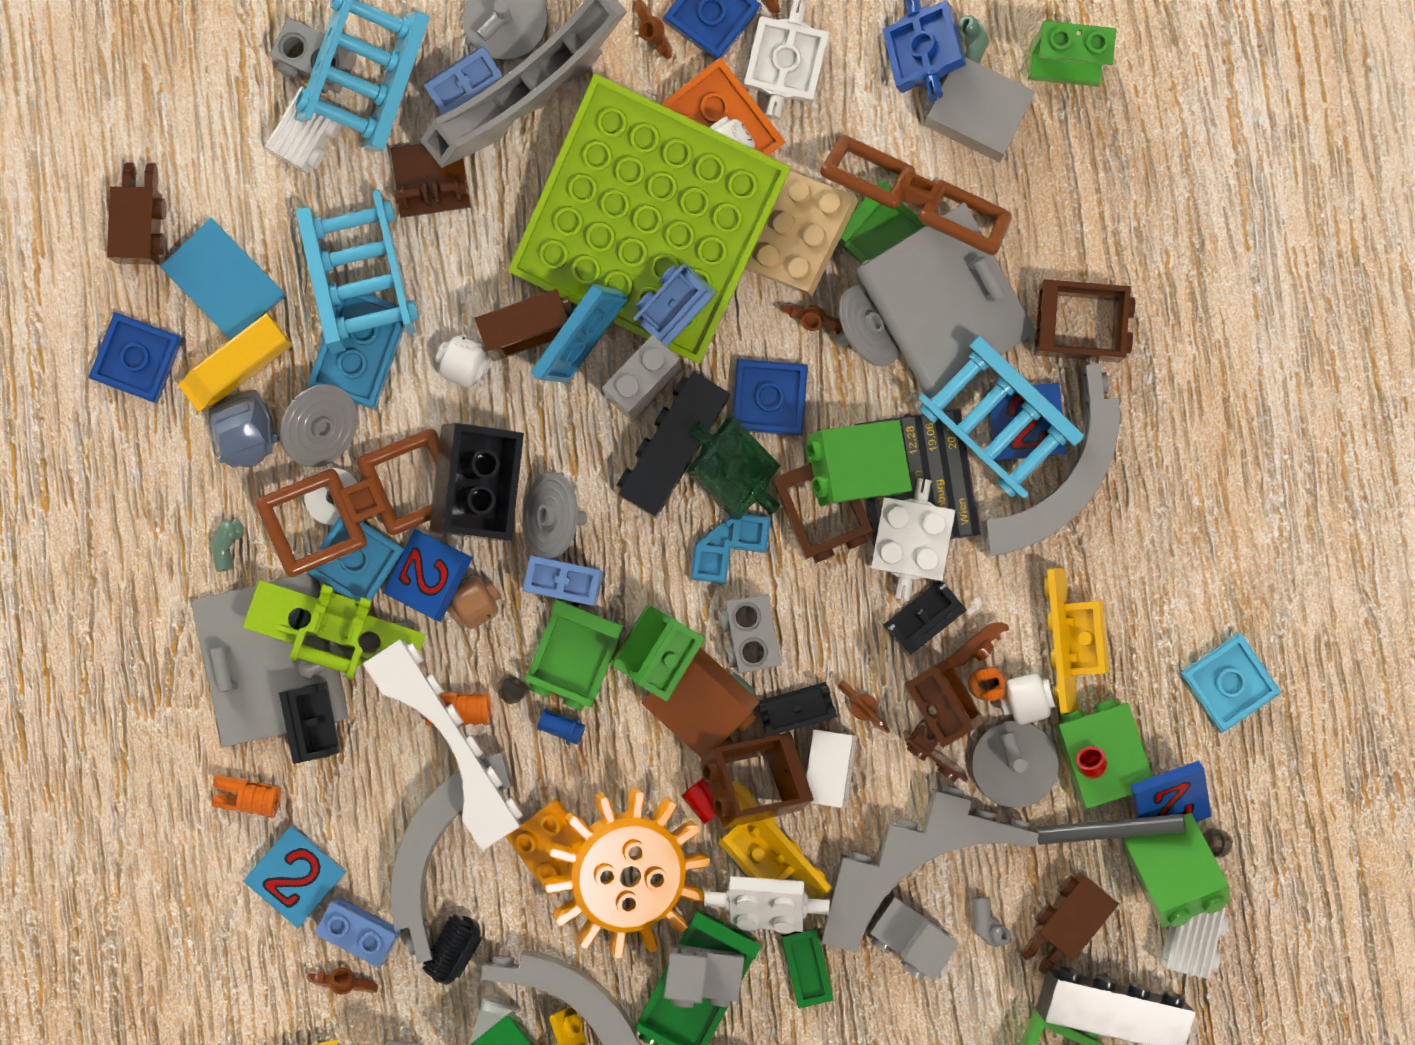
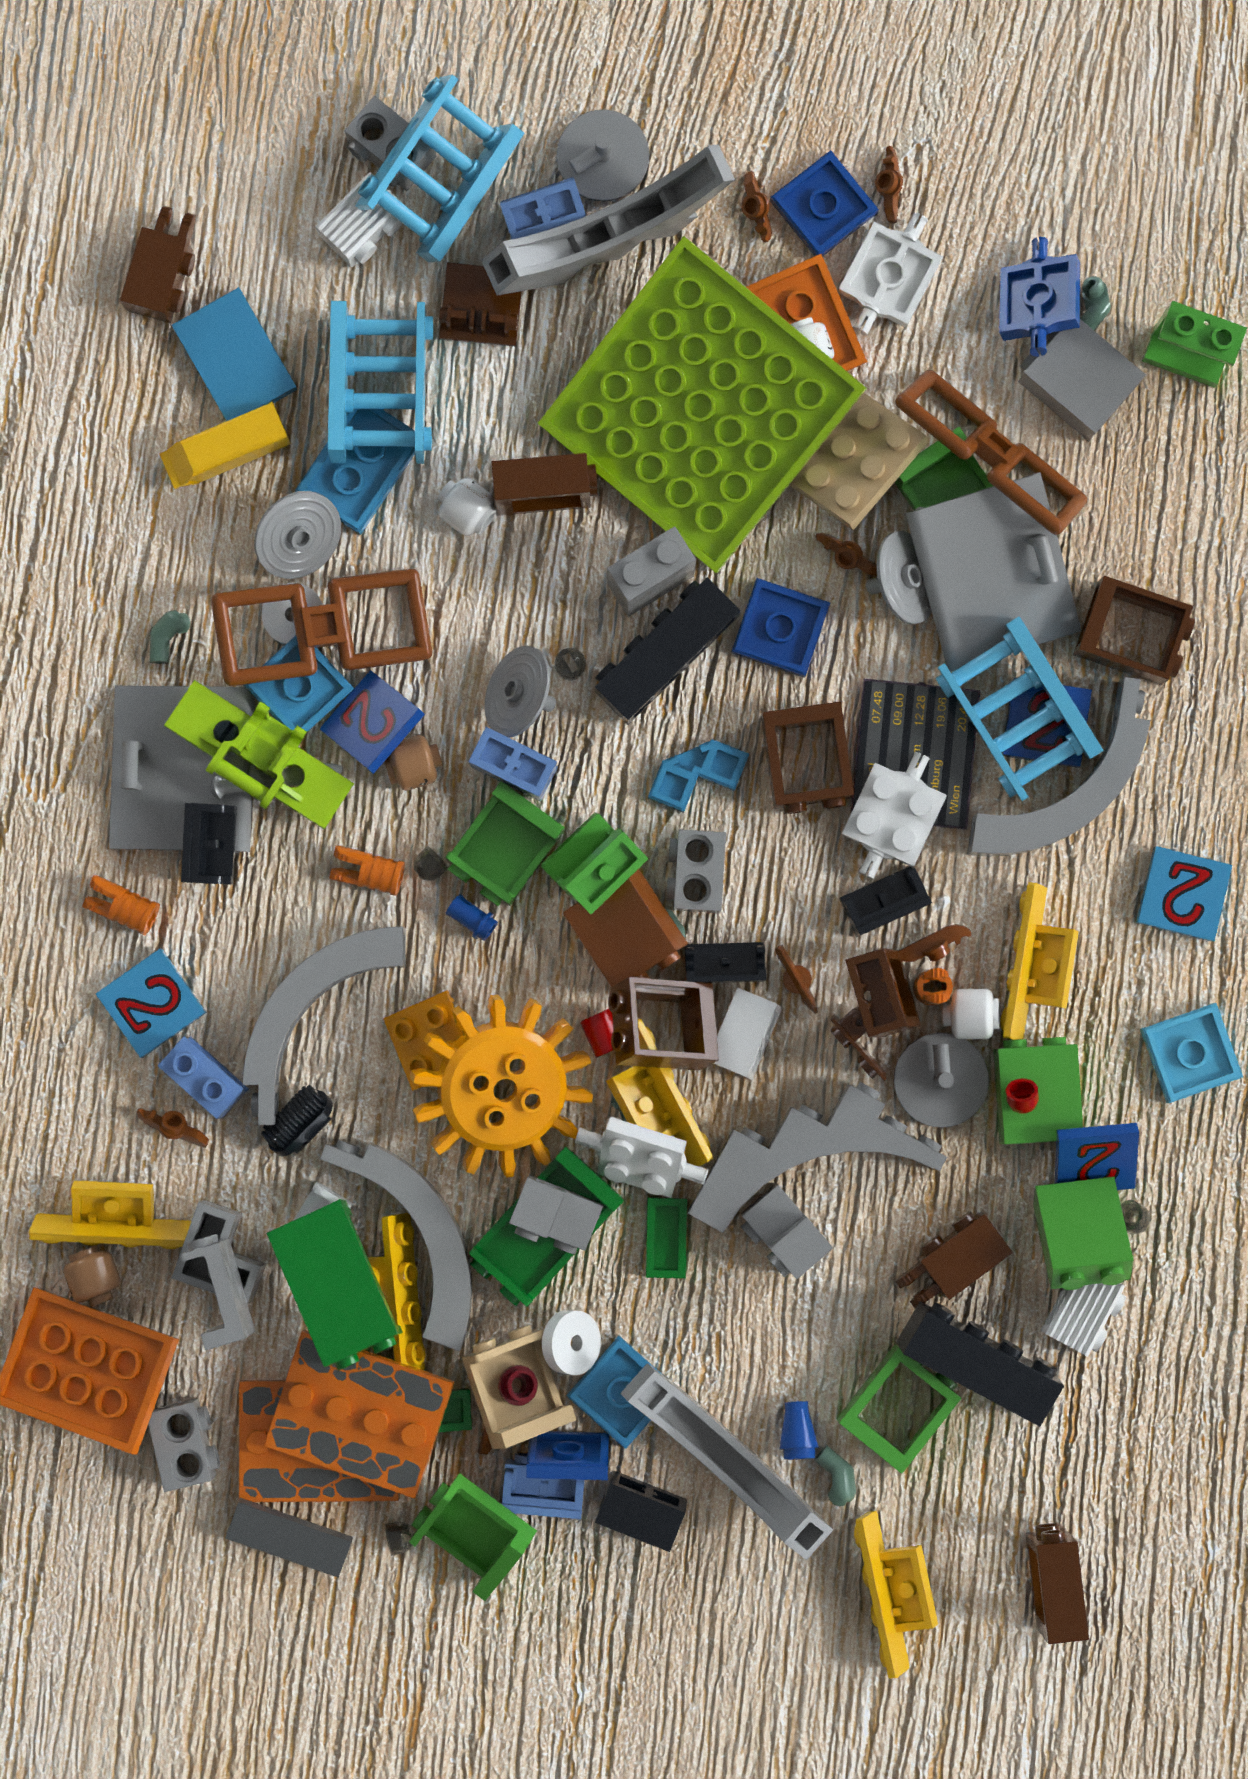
camera: 10 degrees right, 0 degrees up
(135, 357) = (121, 415): blue tile -> none
(242, 429) = (215, 519): sand blue helmet -> none
(476, 482) = (448, 636): black brick -> none
(485, 808) = (370, 981): white arch -> none
(580, 334) = (597, 507): dark azure tile -> none
(585, 482) = (563, 668): none -> clear smoke hinge
(674, 304) = (705, 501): medium blue hinge -> none
(733, 468) = (723, 691): clear green plate -> none
(858, 462) = (857, 717): bright green panel -> none
(985, 926) = (866, 1242): light grey arm -> none
(1111, 829) = (1025, 1173): dark grey piece -> none
(1187, 543) = (1184, 894): none -> dark azure tile

